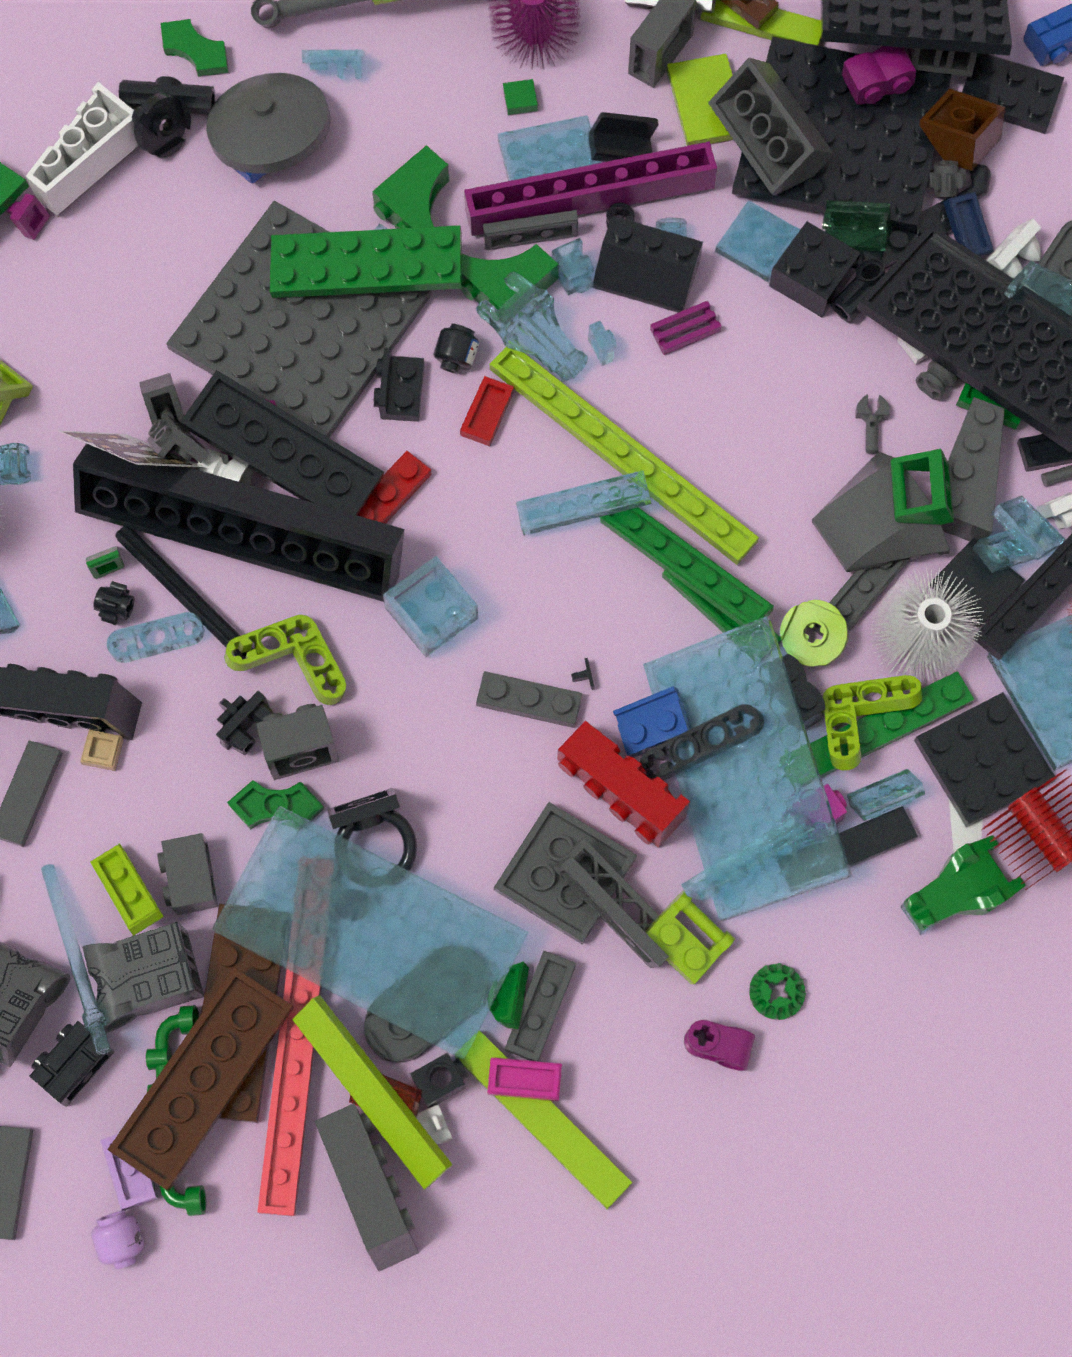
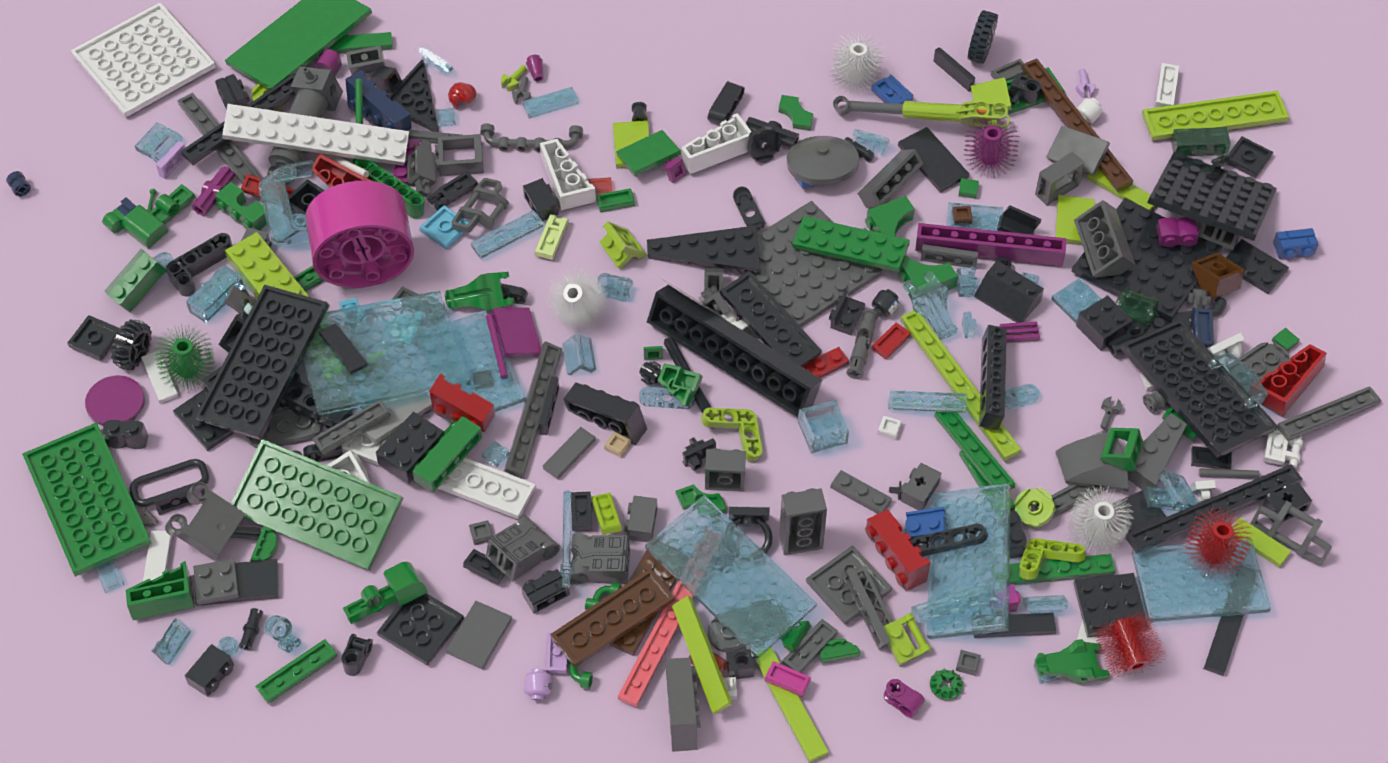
camera: 20 degrees right, 15 degrees down
(73, 67) = (726, 102): none -> black beam
(82, 894) = (581, 511): none -> black plate
(145, 341) = (714, 249): none -> black wing
(165, 238) = (744, 202): none -> black piece
(169, 607) = (680, 382): none -> green slope
(324, 82) = (862, 151): none -> black axle
(390, 121) = (890, 178): none -> dark grey brick
(444, 452) = (862, 344): none -> dark grey piece
(446, 62) = (939, 164): none -> black tile
(458, 799) = (802, 521): none -> dark grey brick
(528, 150) = (962, 215): none -> reddish brown tile
(536, 567) = (889, 427): none -> white tile
(587, 995) = (838, 650): none -> green plate
(624, 676) = (920, 486): none -> dark grey brick
(674, 427) = (993, 377): none -> black brick
(727, 441) = (1021, 396): none -> clear light blue plate
(798, 940) = (968, 662): none -> dark grey tile

